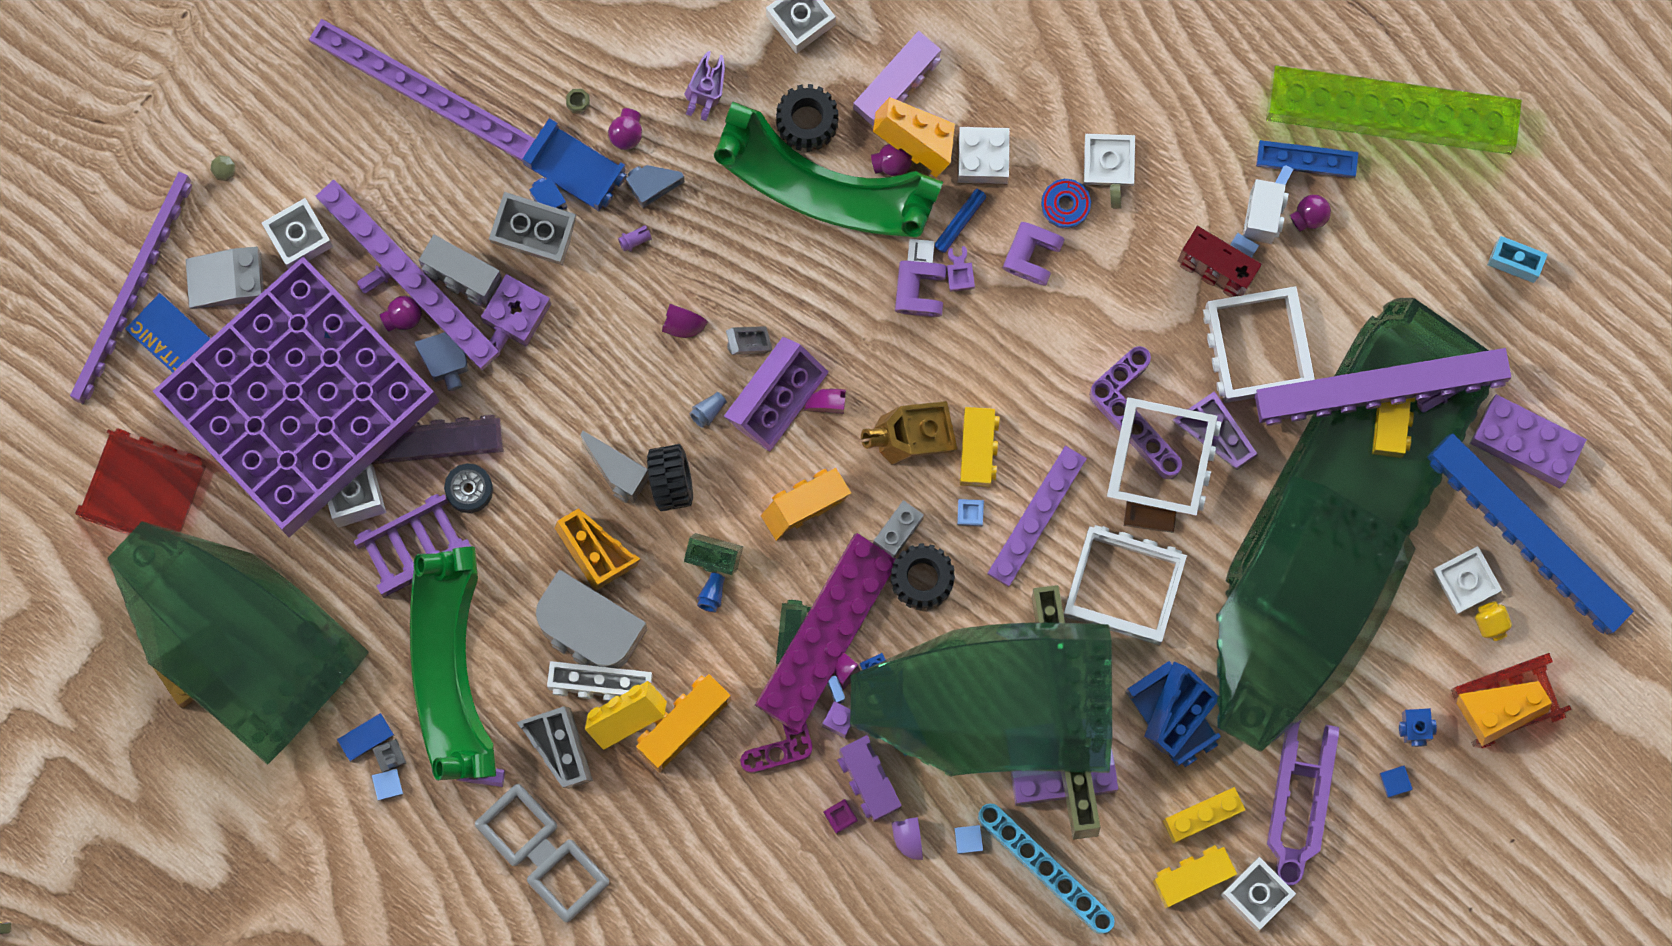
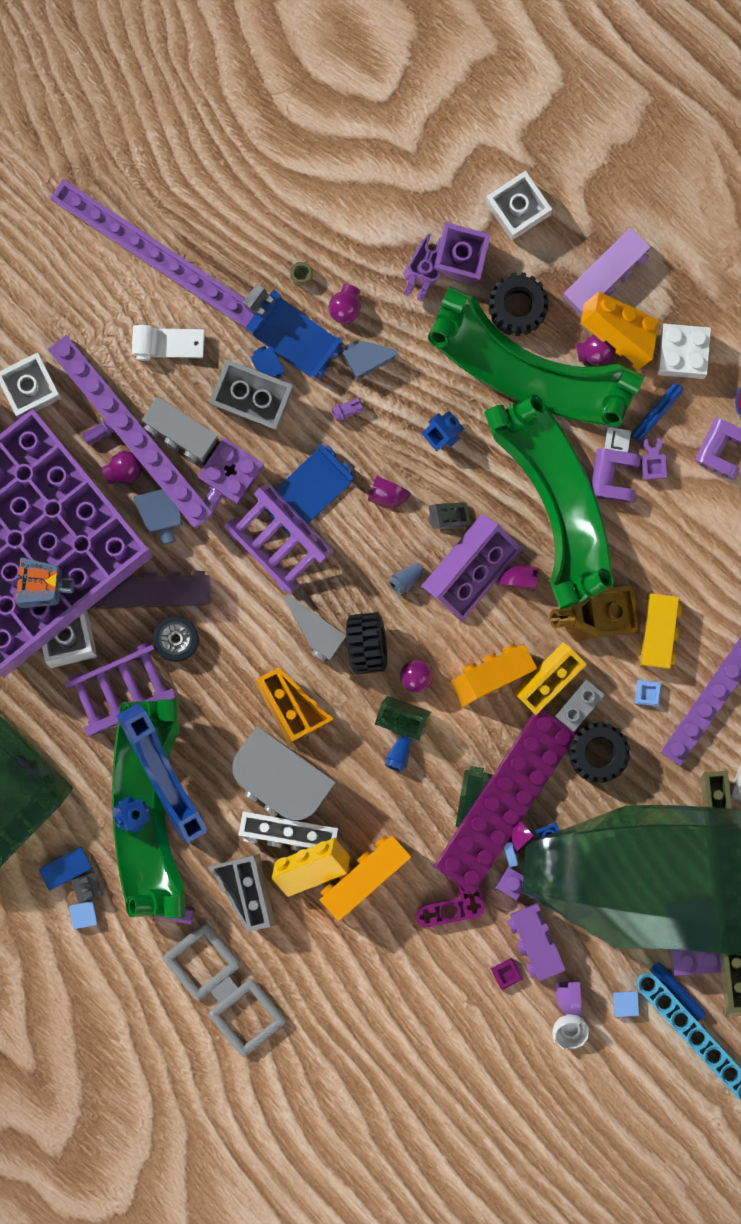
camera: 10 degrees right, 5 degrees up
(322, 434) = (40, 584): none -> torso
(424, 675) = (123, 814): none -> blue brick
(447, 181) = (167, 343): none -> white door
(476, 653) = (160, 773): none -> blue arch
(531, 129) = (255, 300): none -> flat silver tile
(592, 366) = (294, 523): none -> medium lavender fence
(598, 325) = (315, 484): none -> blue panel
(724, 509) = (416, 676): none -> magenta piece
(736, 253) = (443, 431): none -> blue brick
(744, 68) = (462, 253): none -> medium lavender slope
(855, 284) = (547, 457): none -> green panel
(865, 502) = (549, 678): none -> yellow brick
(911, 871) = (570, 1031): none -> white hair
(1023, 821) = (678, 991): none -> blue axle

